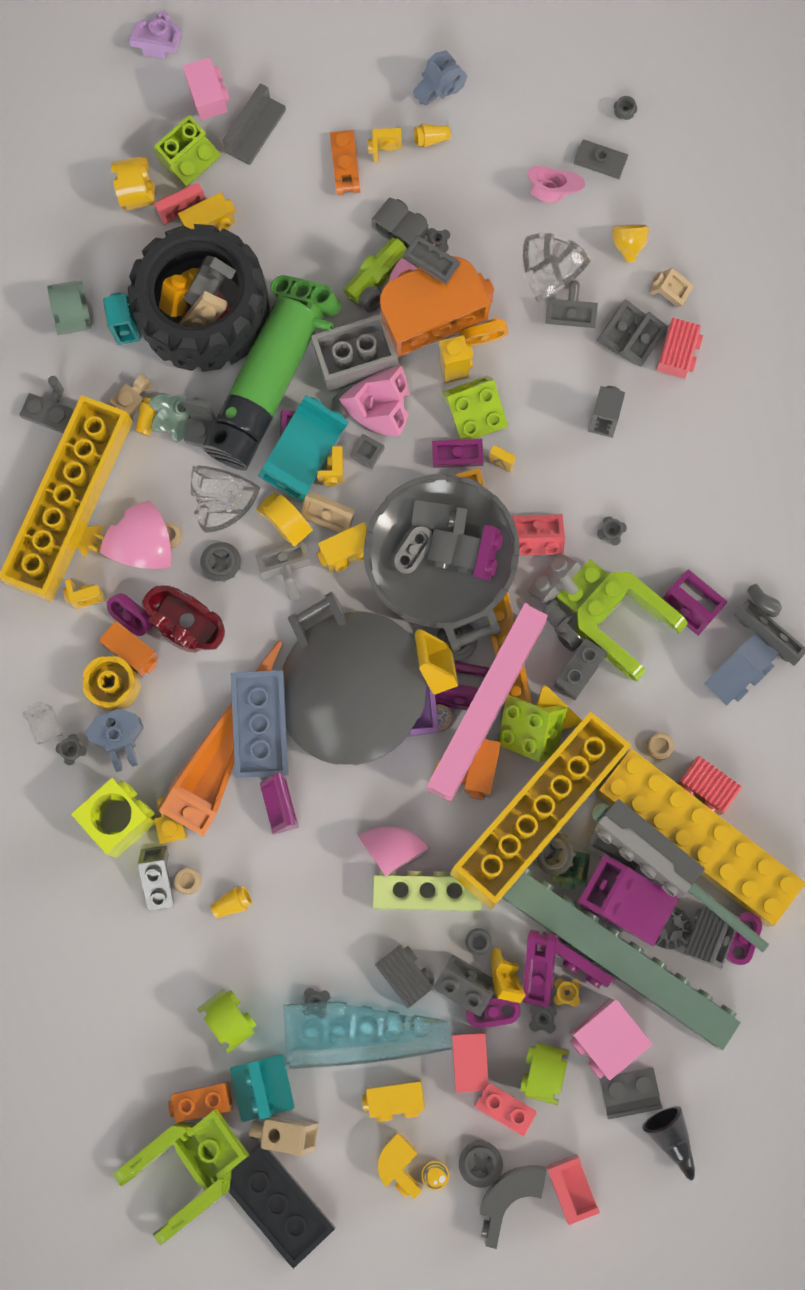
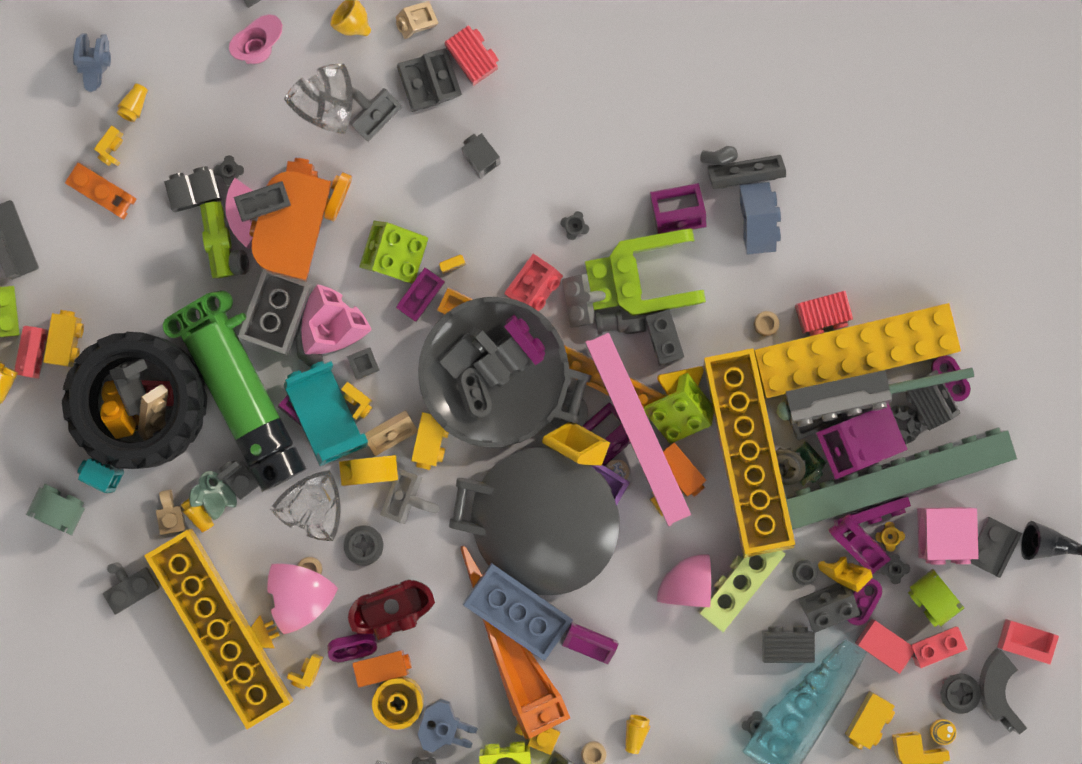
camera: 65 degrees left, 10 degrees up
(455, 358) = (345, 237): yellow brick -> none

